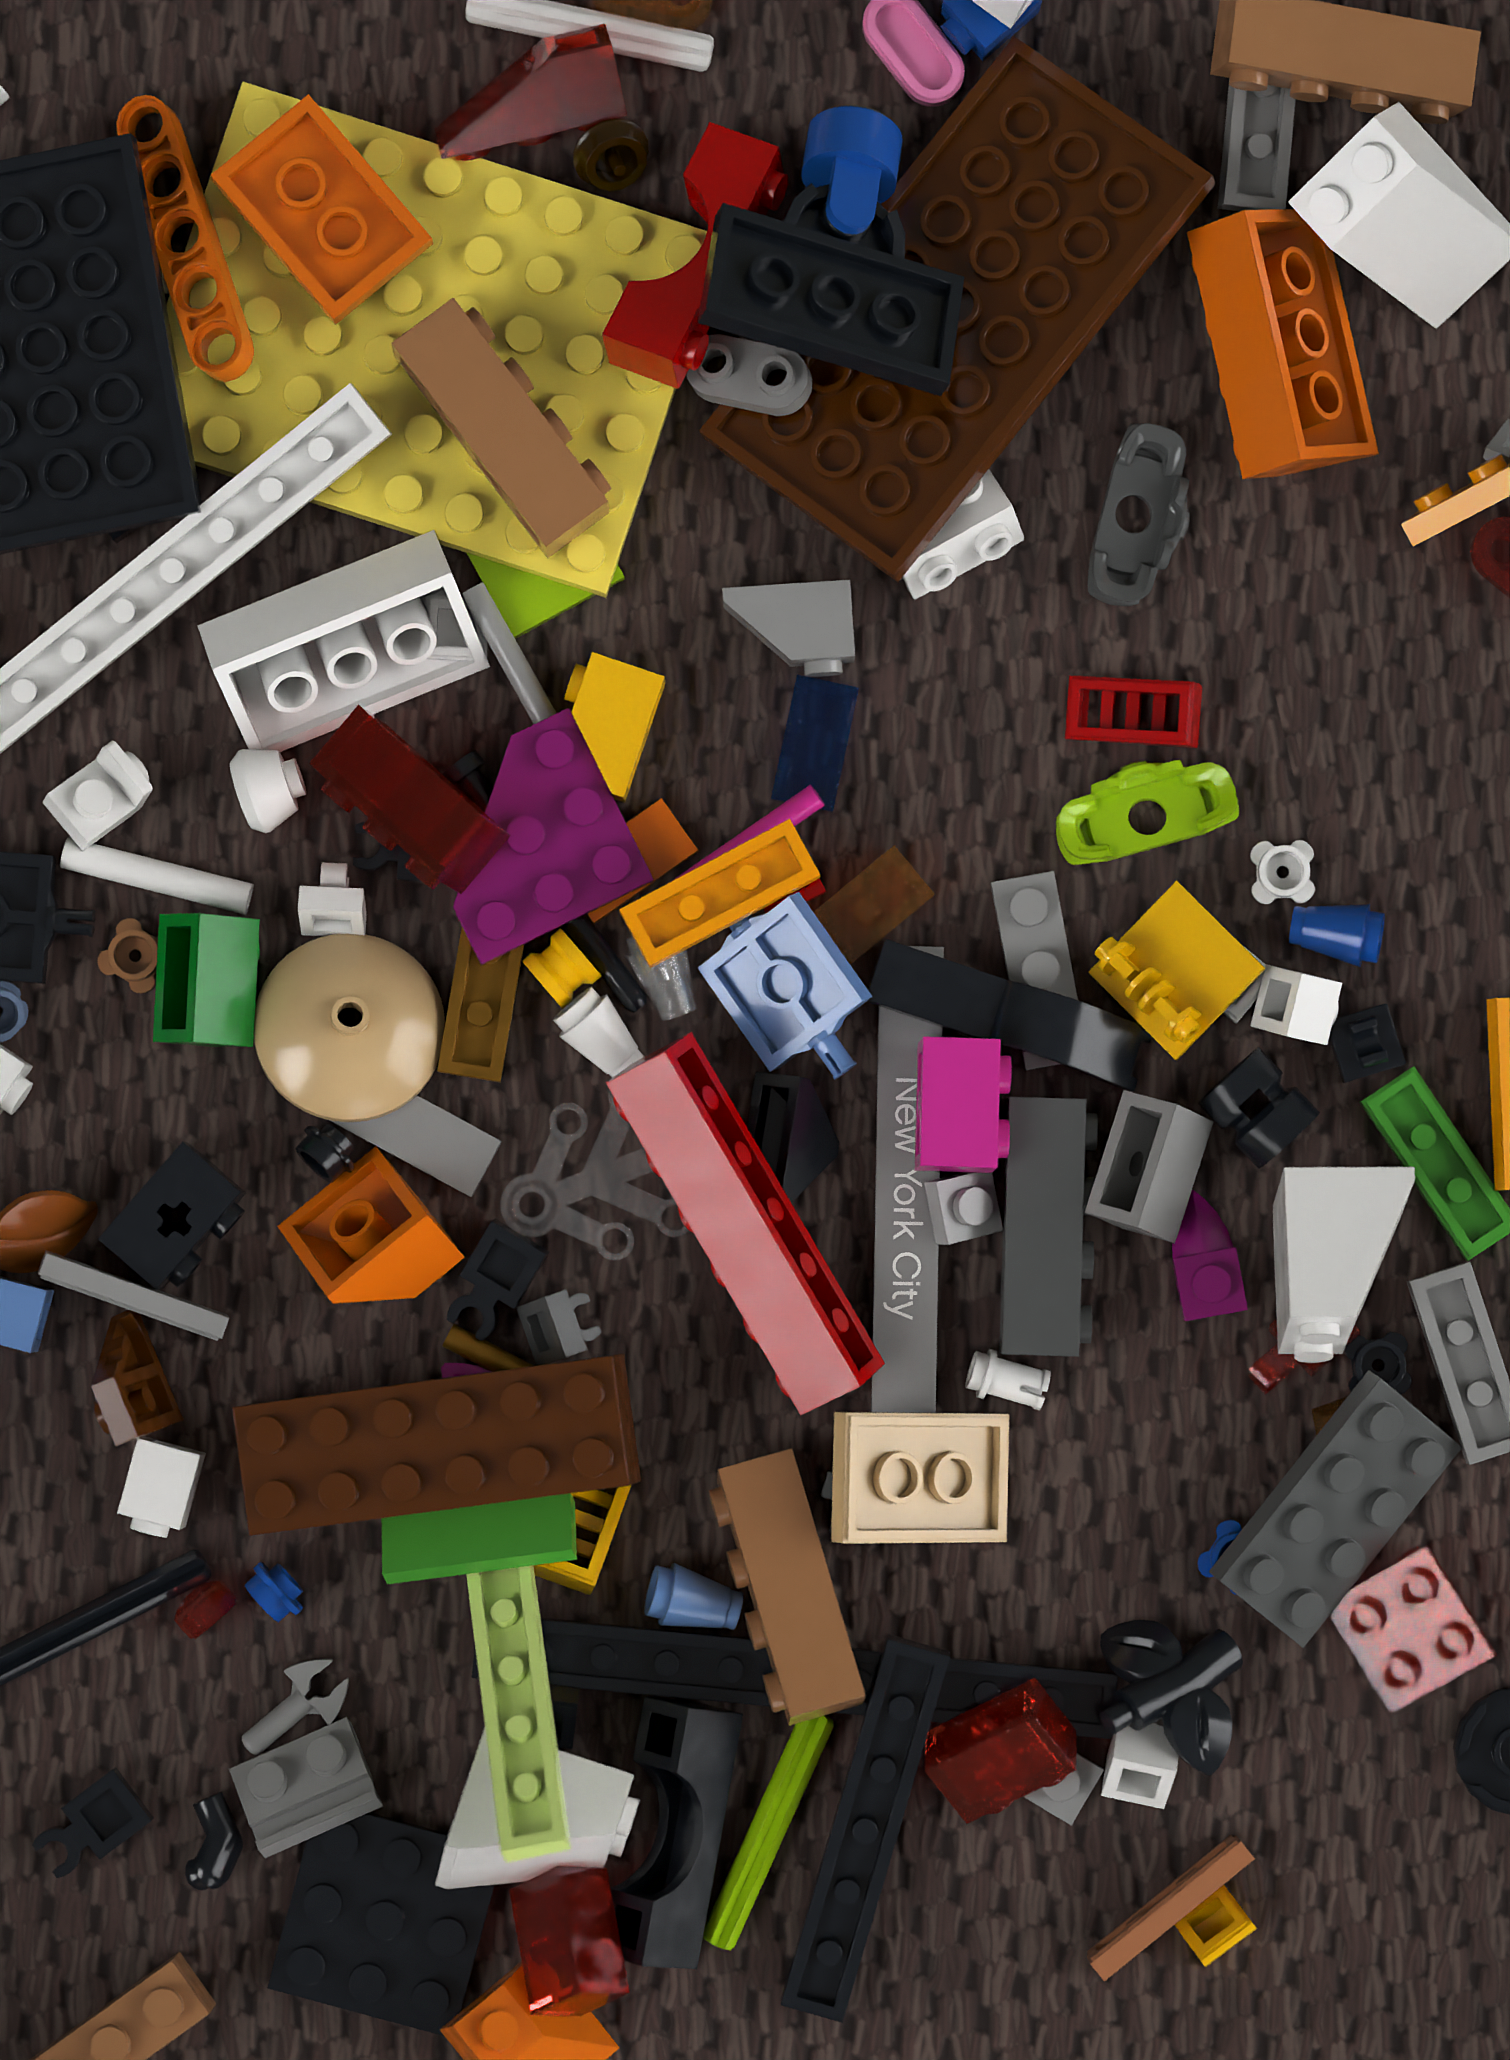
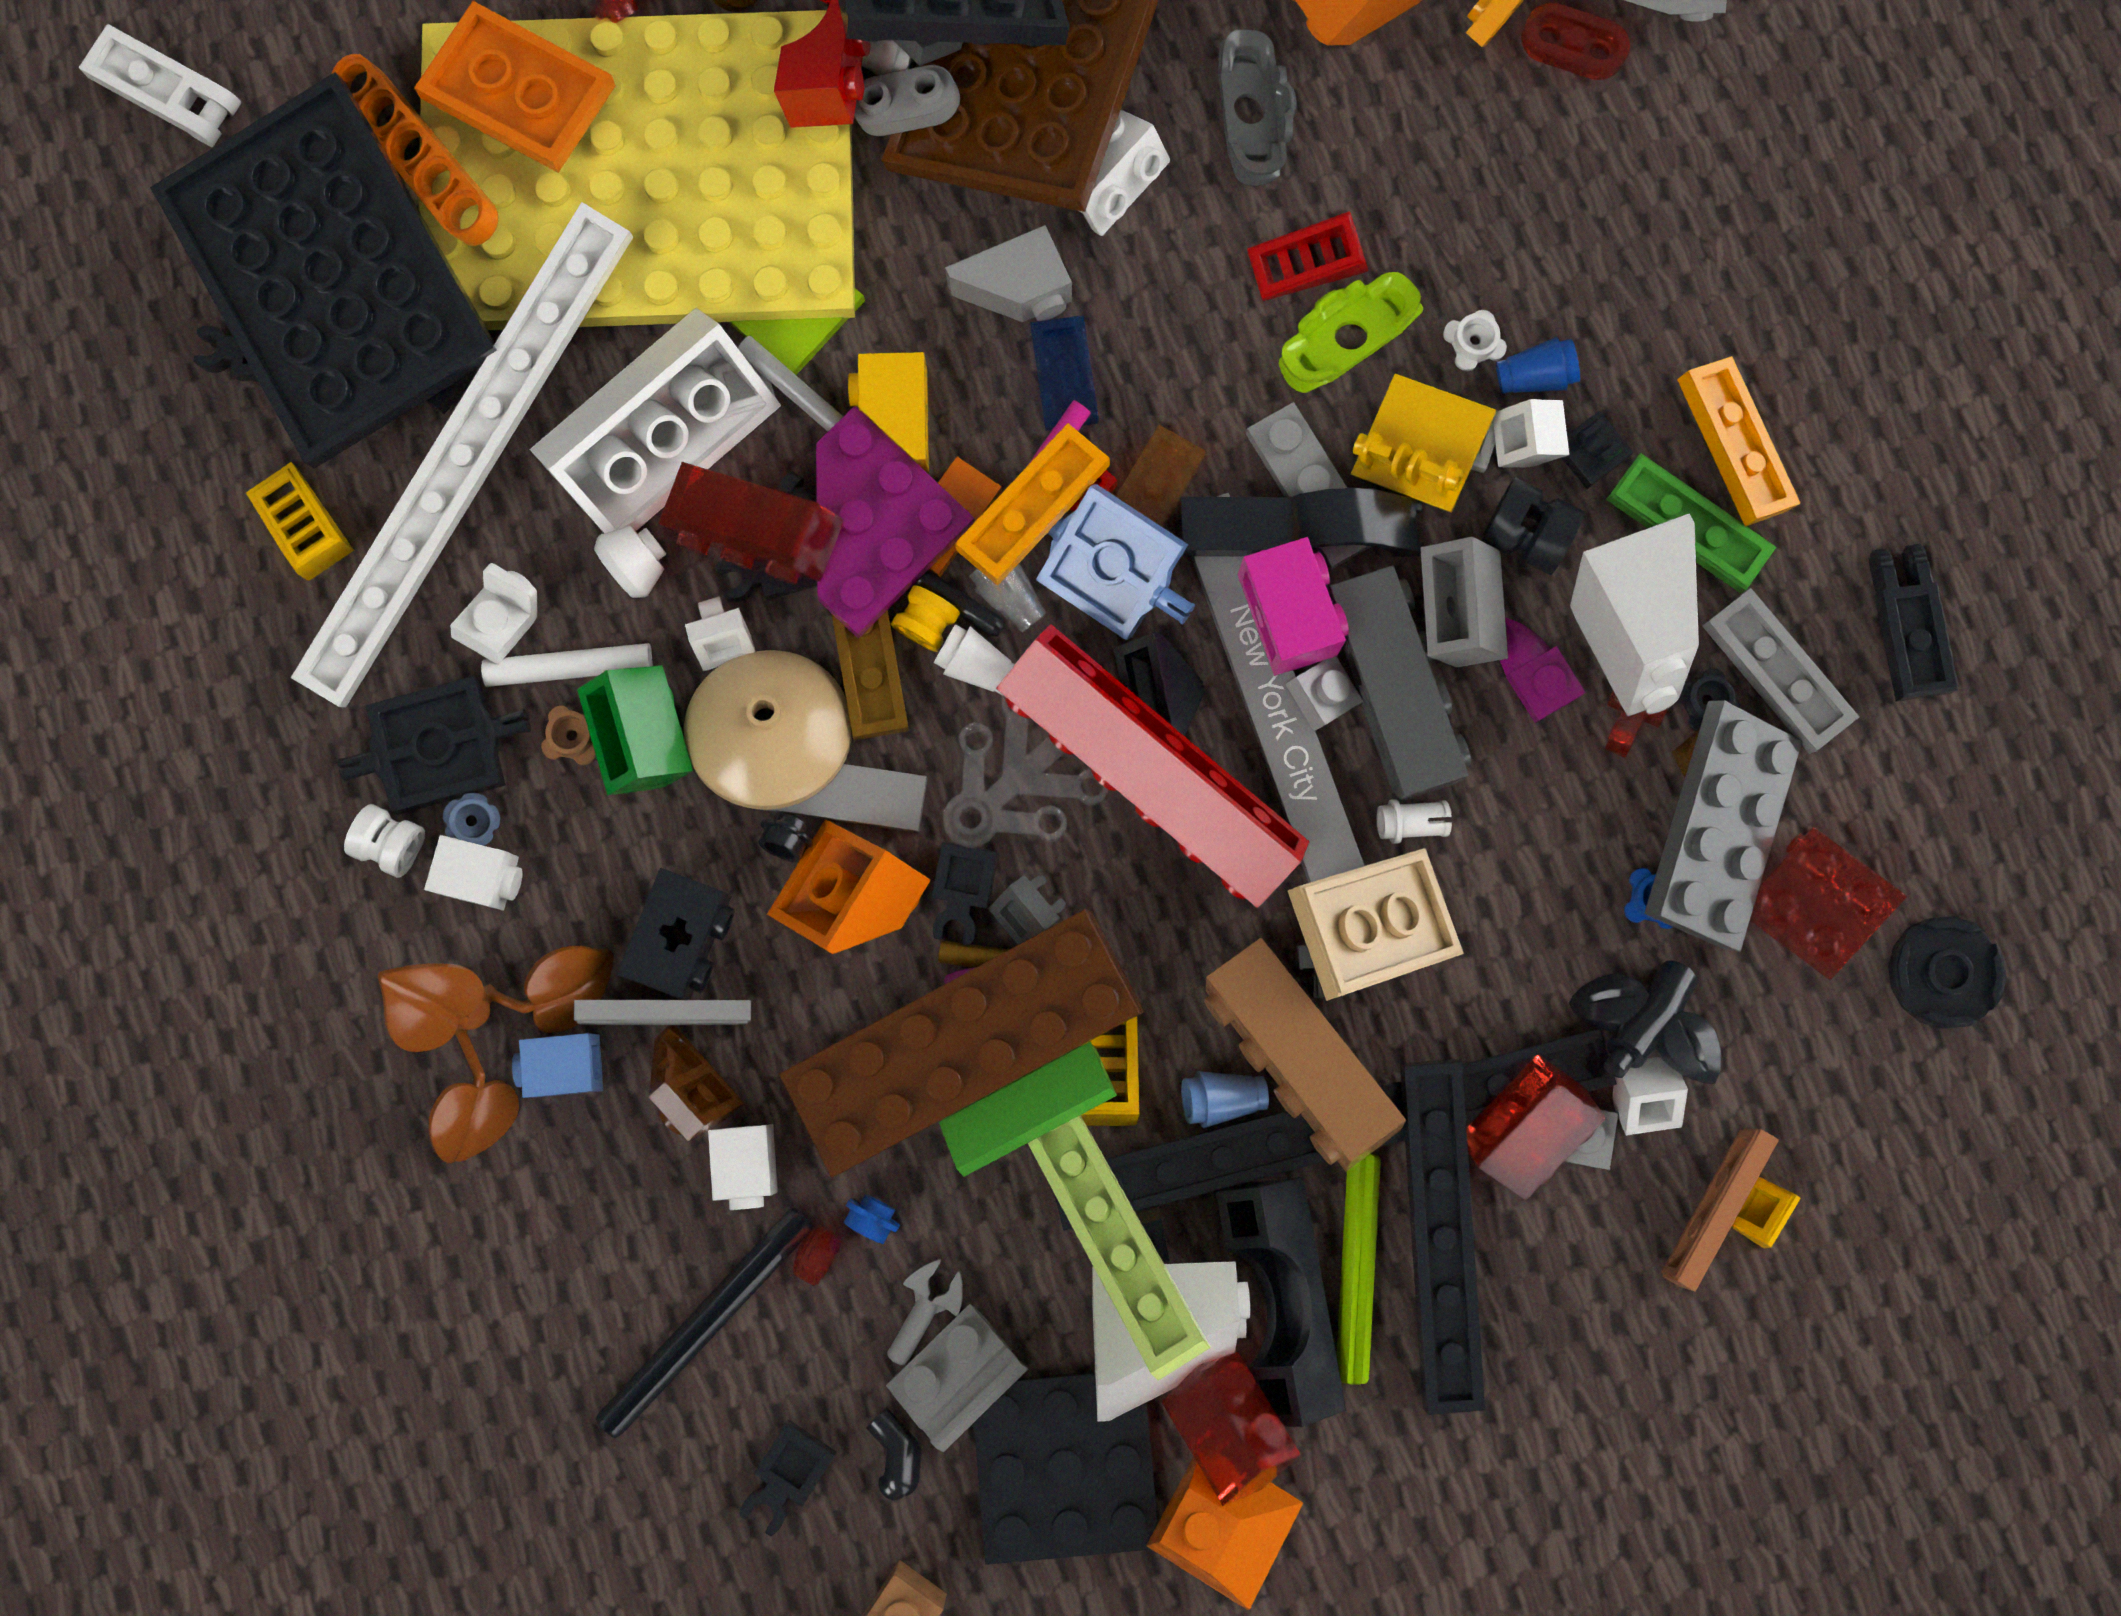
camera: 20 degrees left, 5 degrees down
(502, 427) = (720, 199): medium nougat brick -> none

